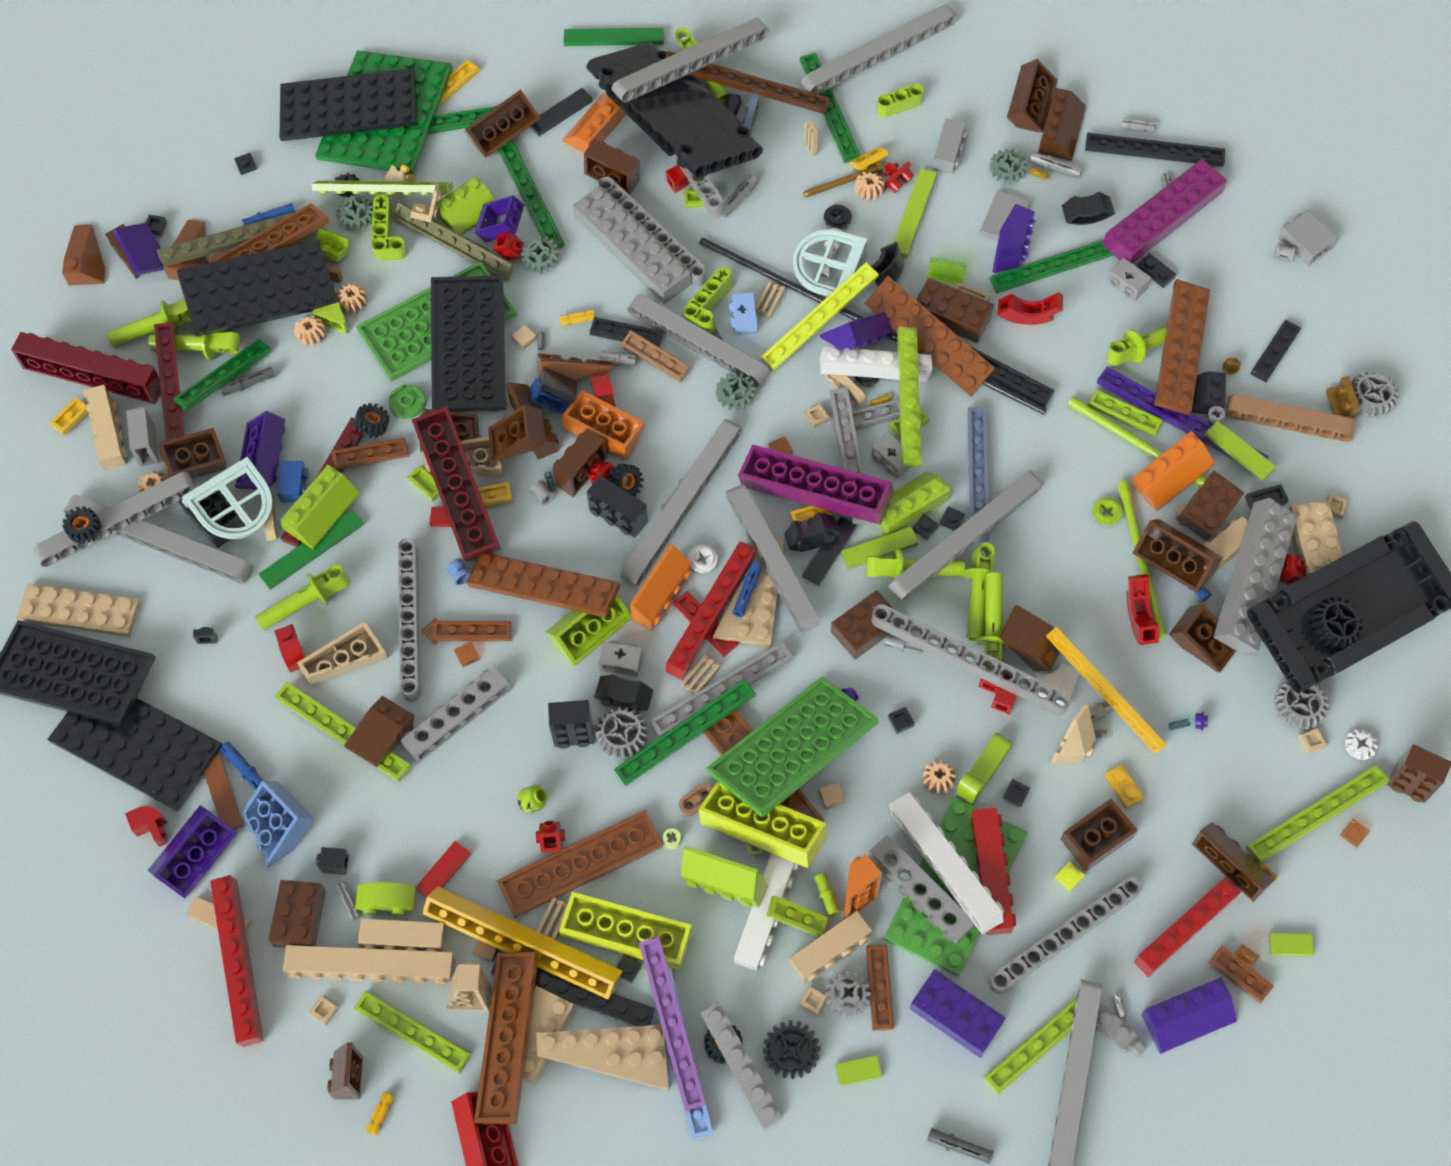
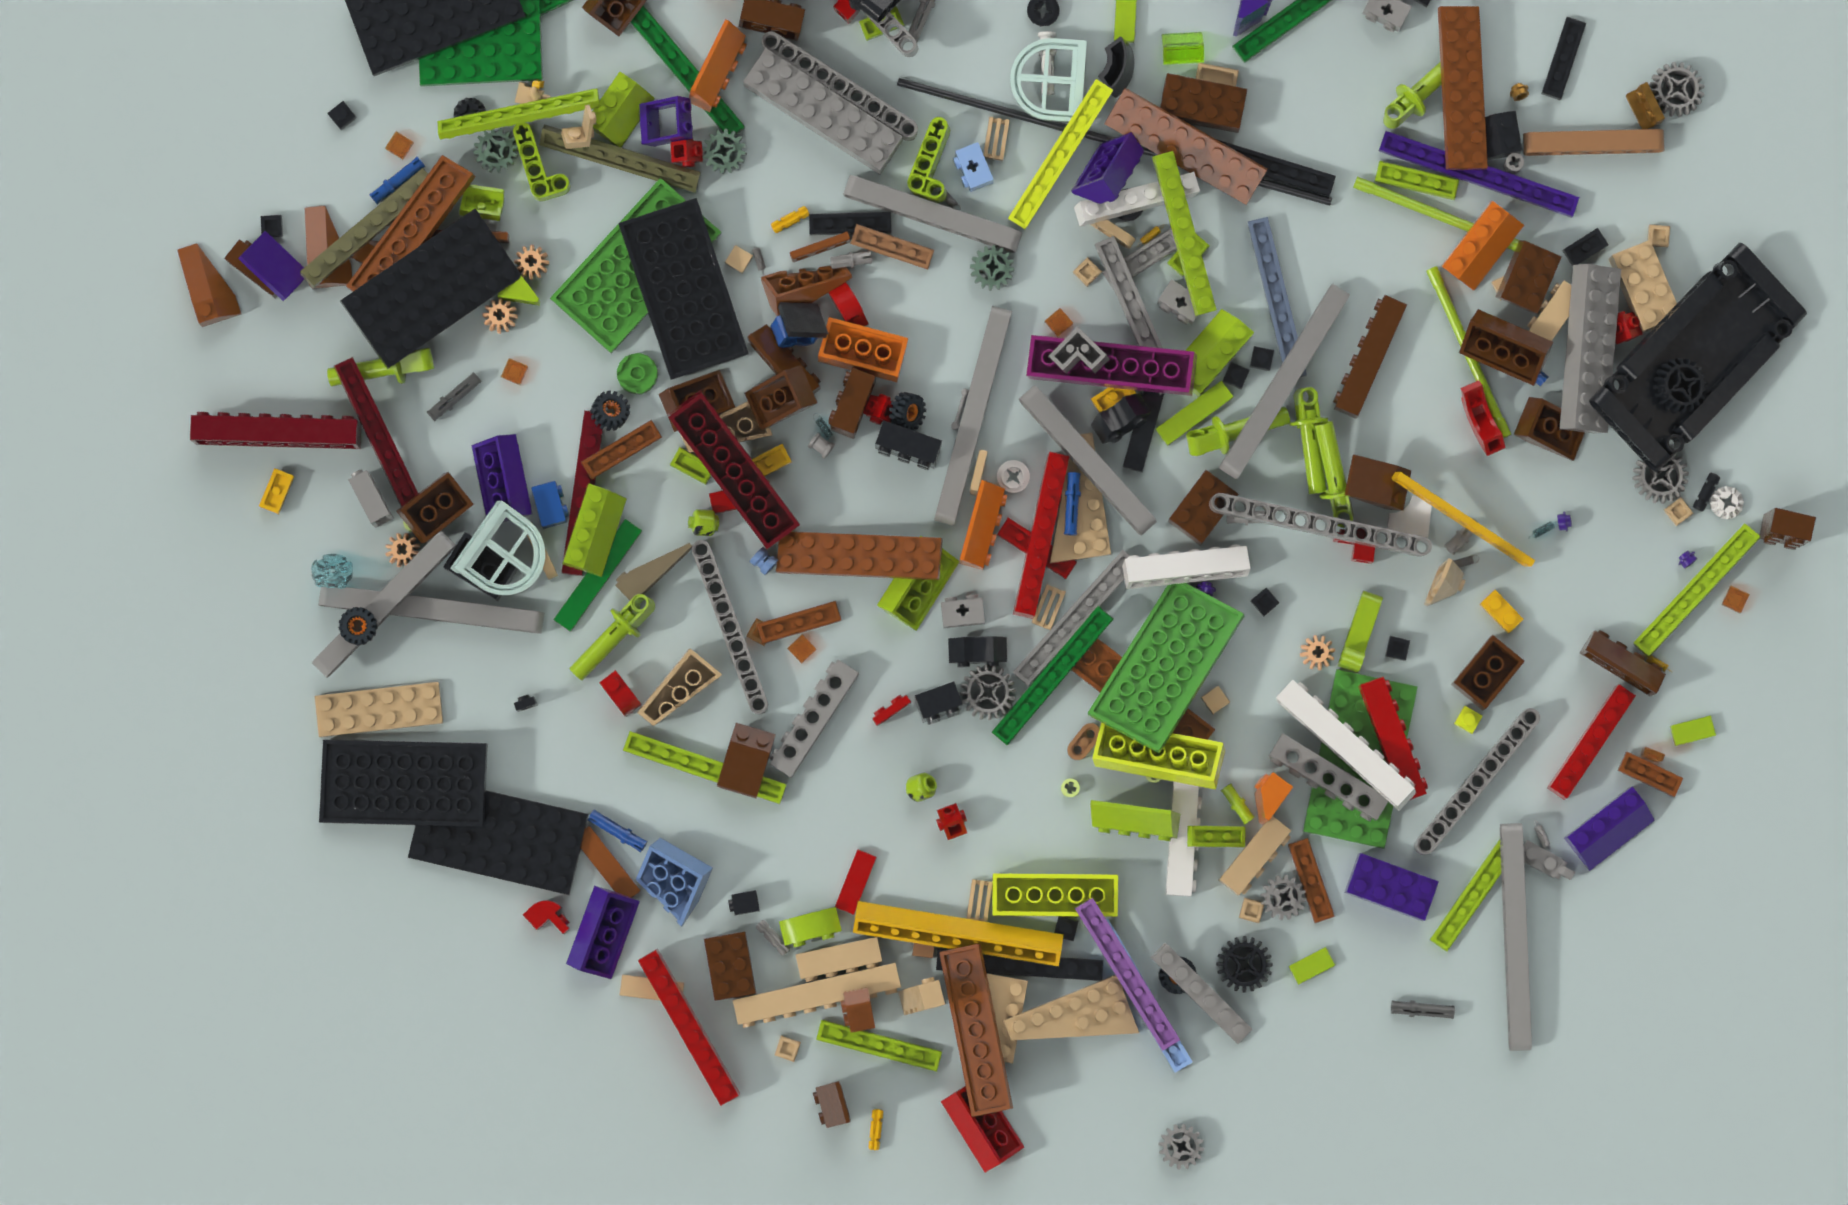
camera: 20 degrees left, 20 degrees up
(86, 487) = (338, 579): none -> clear light blue plate
(105, 427) = (324, 497): tan wedge -> none
(172, 313) = (340, 344): lime piece -> none
(222, 375) = (427, 399): green tile -> none
(281, 193) = (399, 145): none -> clear orange tile
(305, 375) = (514, 371): none -> clear orange tile
(358, 556) = (647, 575): none -> dark tan slope
(401, 987) = (858, 1009): none -> dark orange brick
(418, 527) = (703, 522): none -> lime head
(522, 727) = (897, 704): none -> red plate
(554, 189) = (717, 67): none -> orange slope
(579, 863) = (988, 838): dark orange plate -> none
(594, 341) = (820, 247): none -> dark orange tile
(675, 537) = (977, 476): none -> tan tile
(785, 456) = (1076, 348): none -> light grey brick
(836, 668) = (1186, 566): none -> white brick
(1029, 312) = (1287, 82): red arch -> none
(1050, 538) = (1370, 356): none -> reddish brown brick
(1107, 504) = (1419, 297): lime gear -> none
(1240, 451) = (1547, 200): lime tile -> none
(1314, 784) = (1687, 559): none -> dark purple plate
(1342, 730) = (1706, 492): none -> black axle

